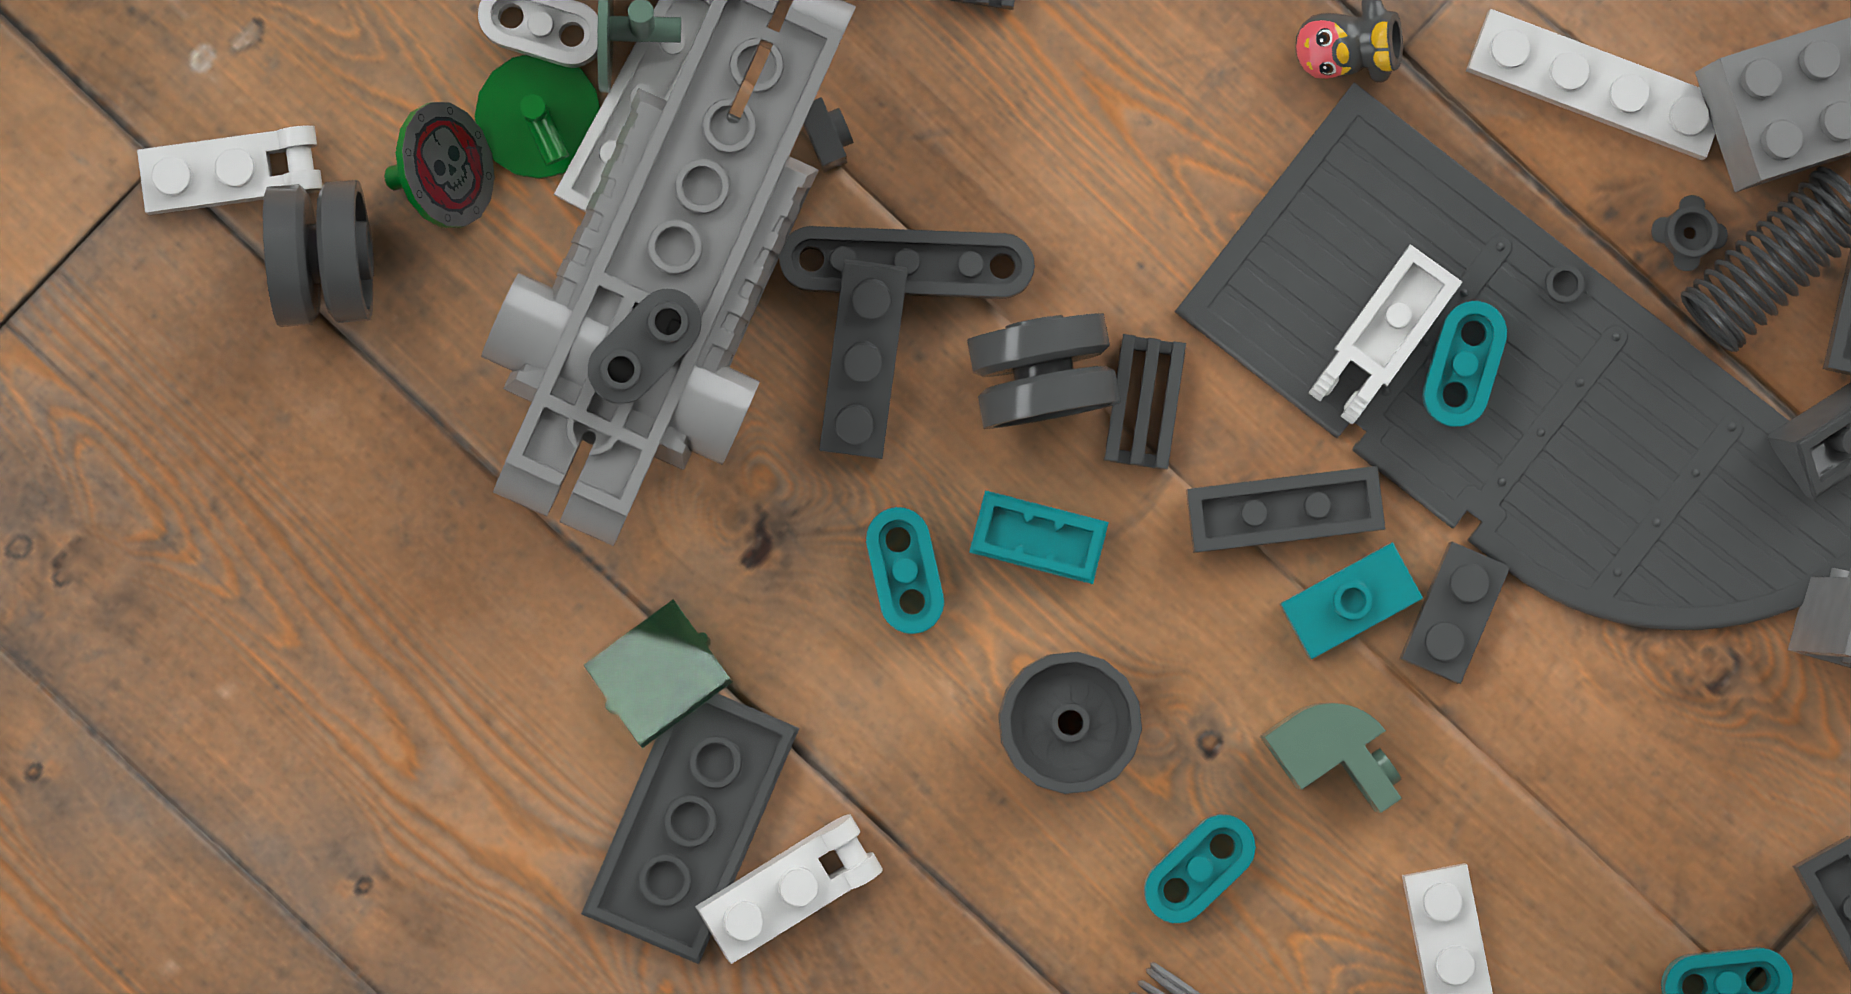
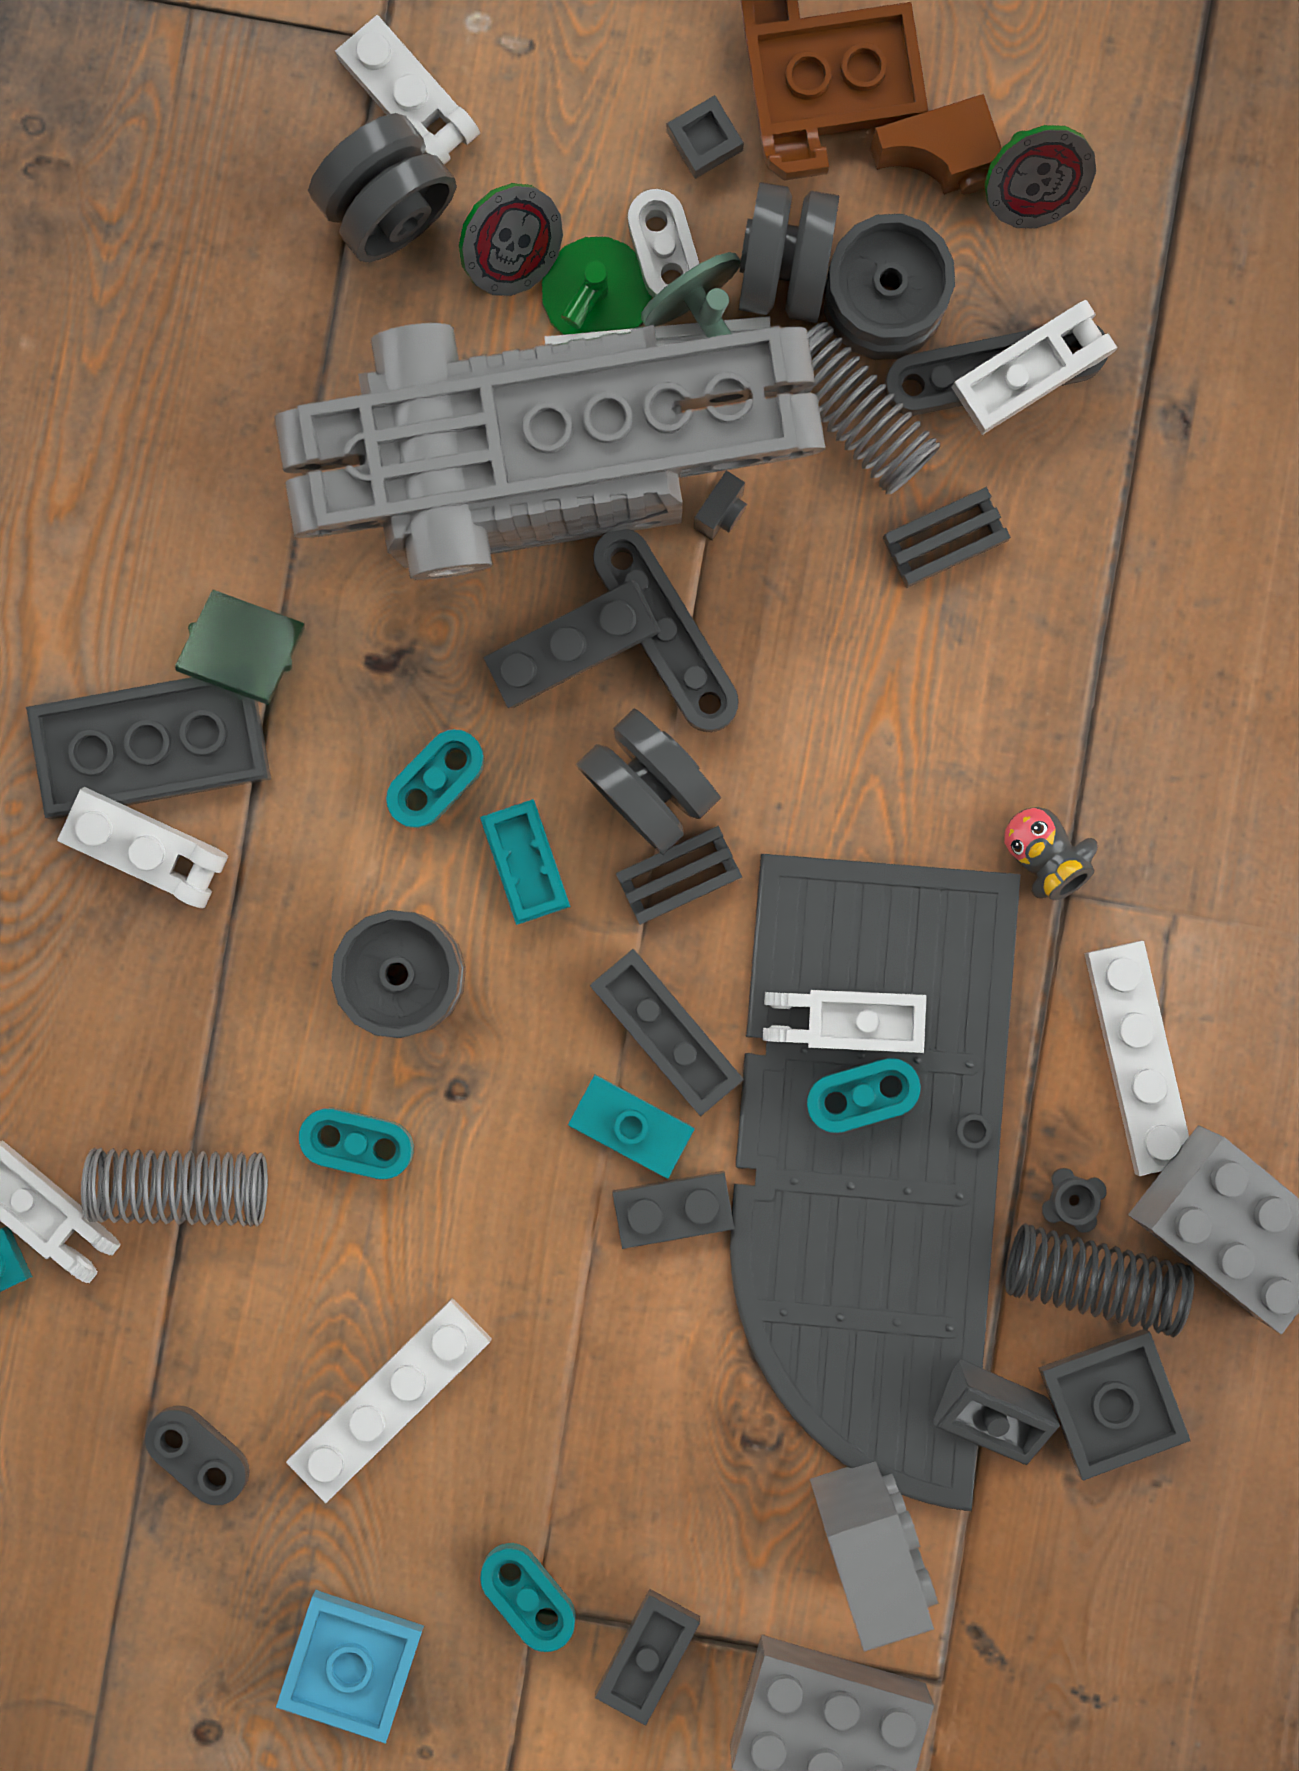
camera: 70 degrees right, 0 degrees up
(644, 346) = (453, 450): dark grey plate -> none
(1331, 734) = (519, 1175): sand green brick -> none

